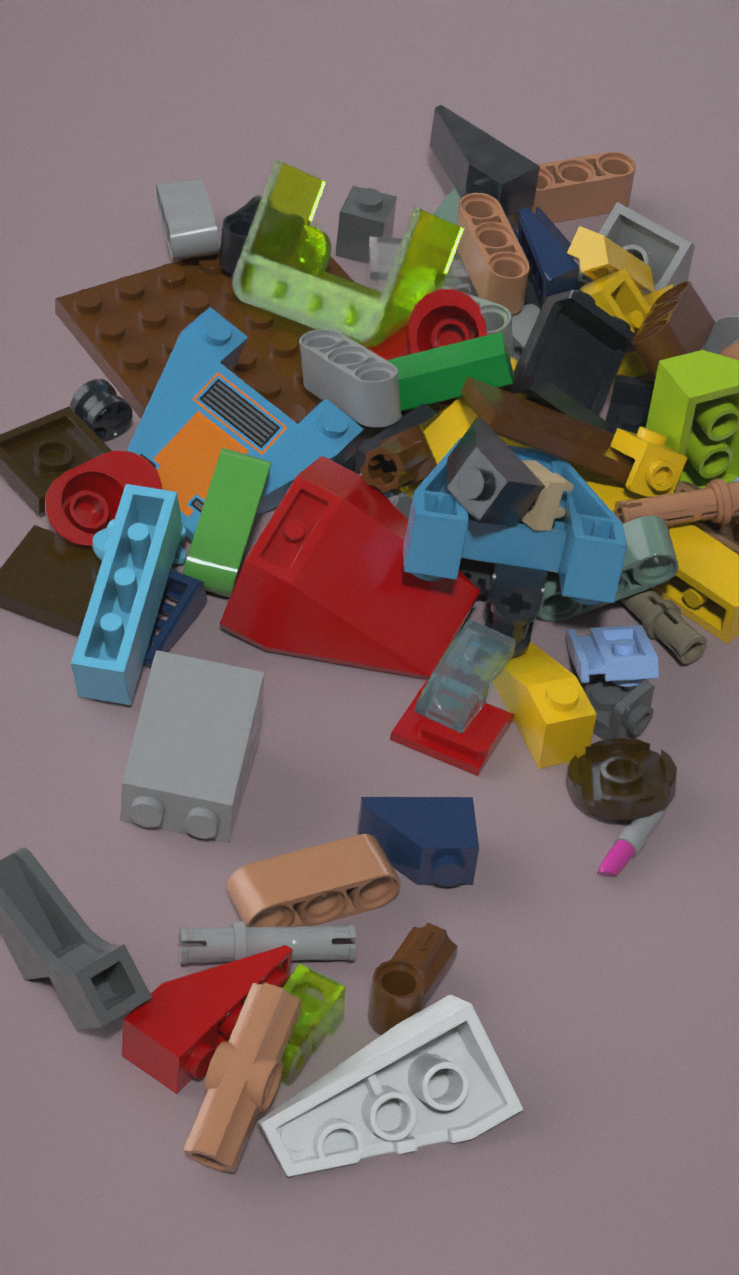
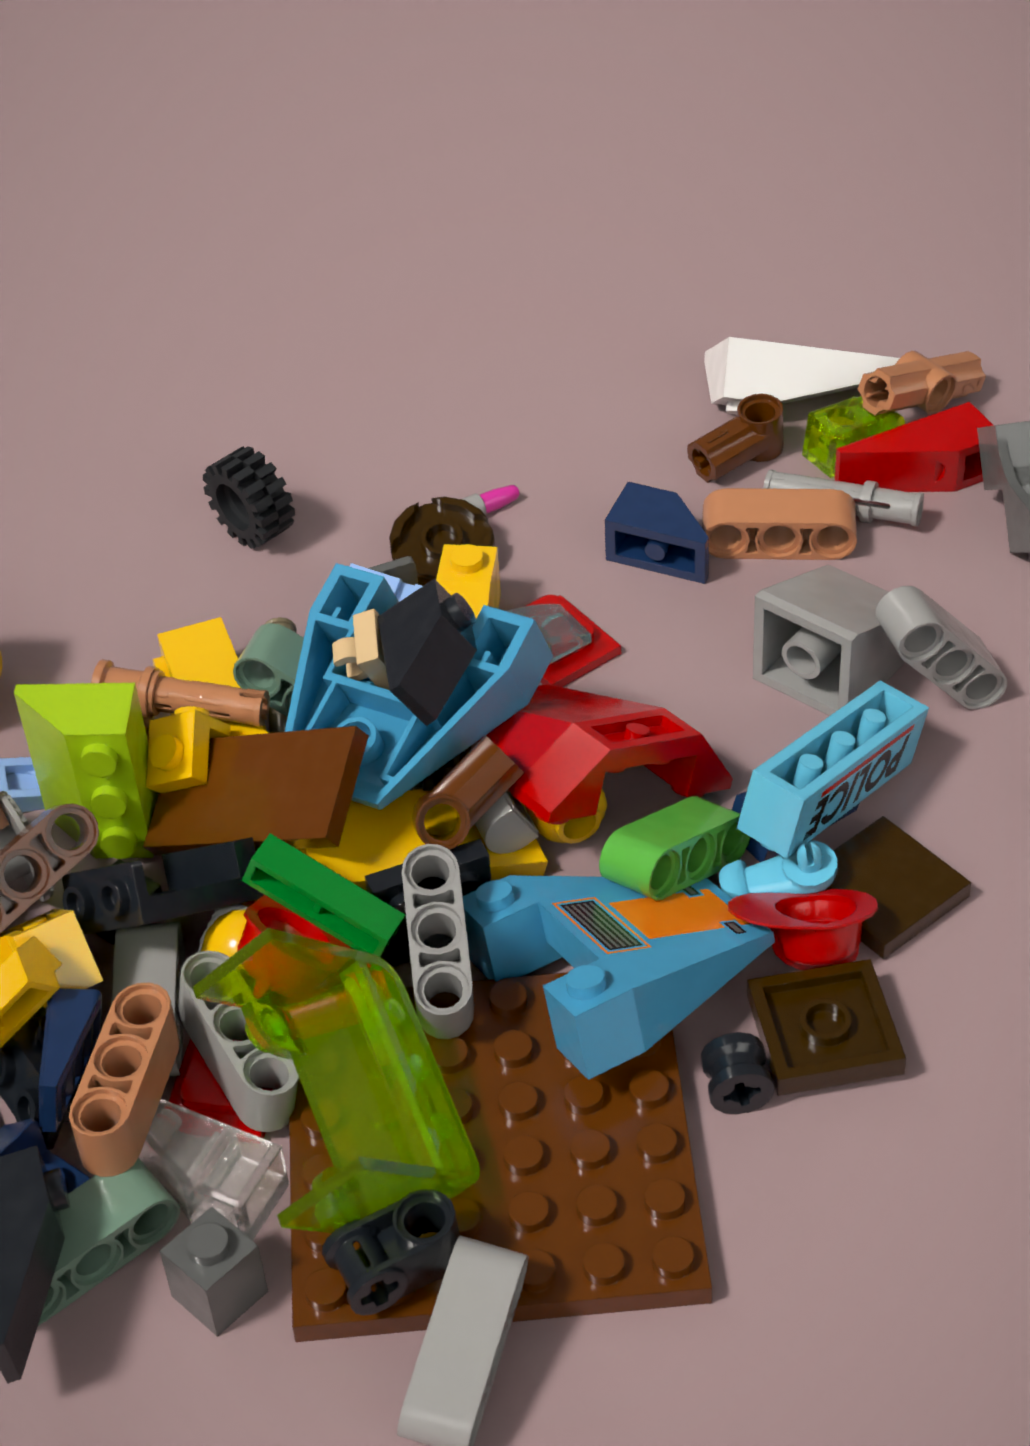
camera: 145 degrees left, 0 degrees up
(83, 726) = (940, 647): none -> light grey beam

